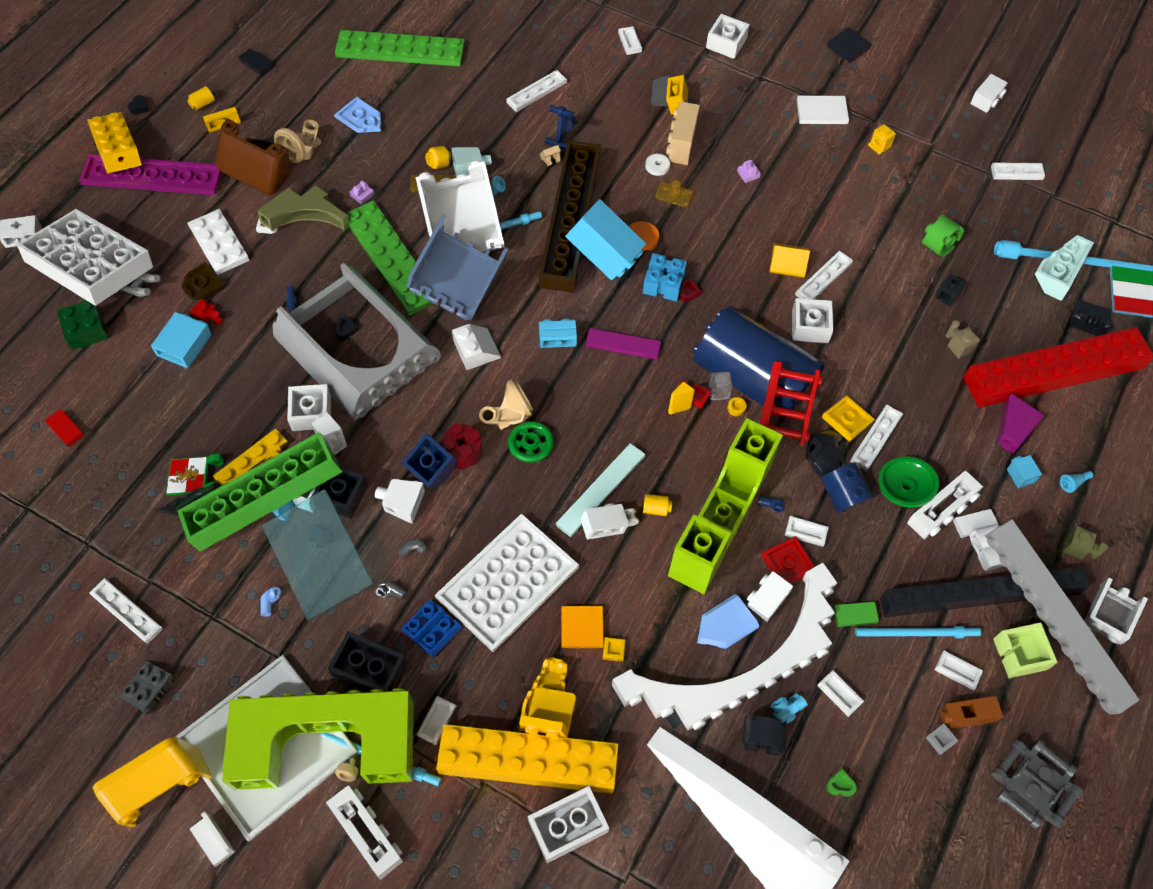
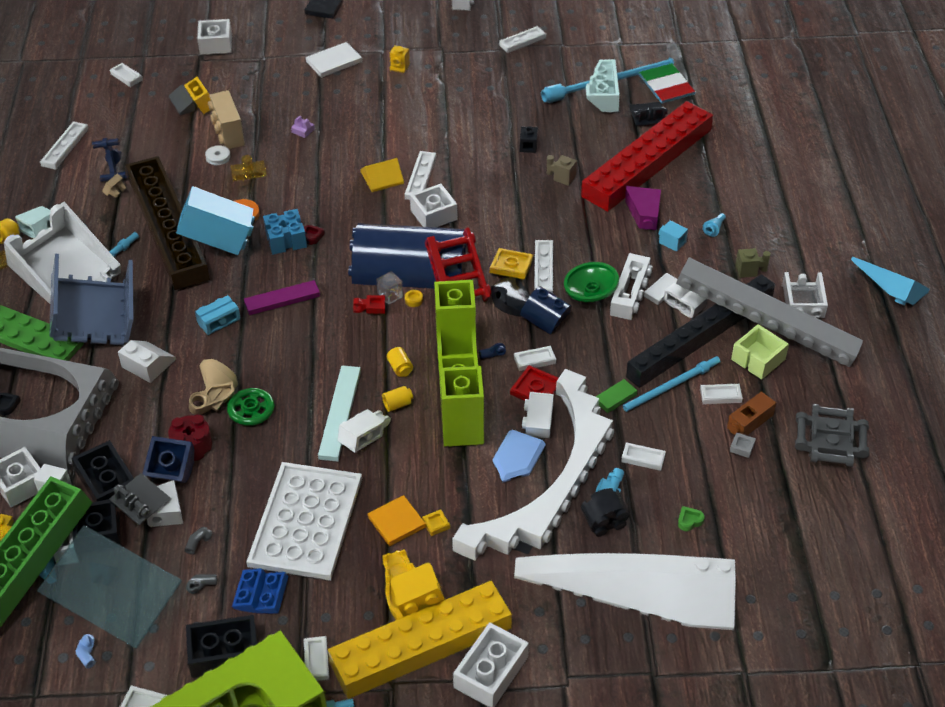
camera: 30 degrees left, 15 degrees down
(374, 446) = (101, 471): none -> black brick
(383, 487) = (139, 498): none -> dark grey hinge
(681, 398) = (364, 309): yellow slope -> none
(682, 468) = (399, 361): none -> yellow brick
(942, 235) = (496, 104): bright green brick -> none

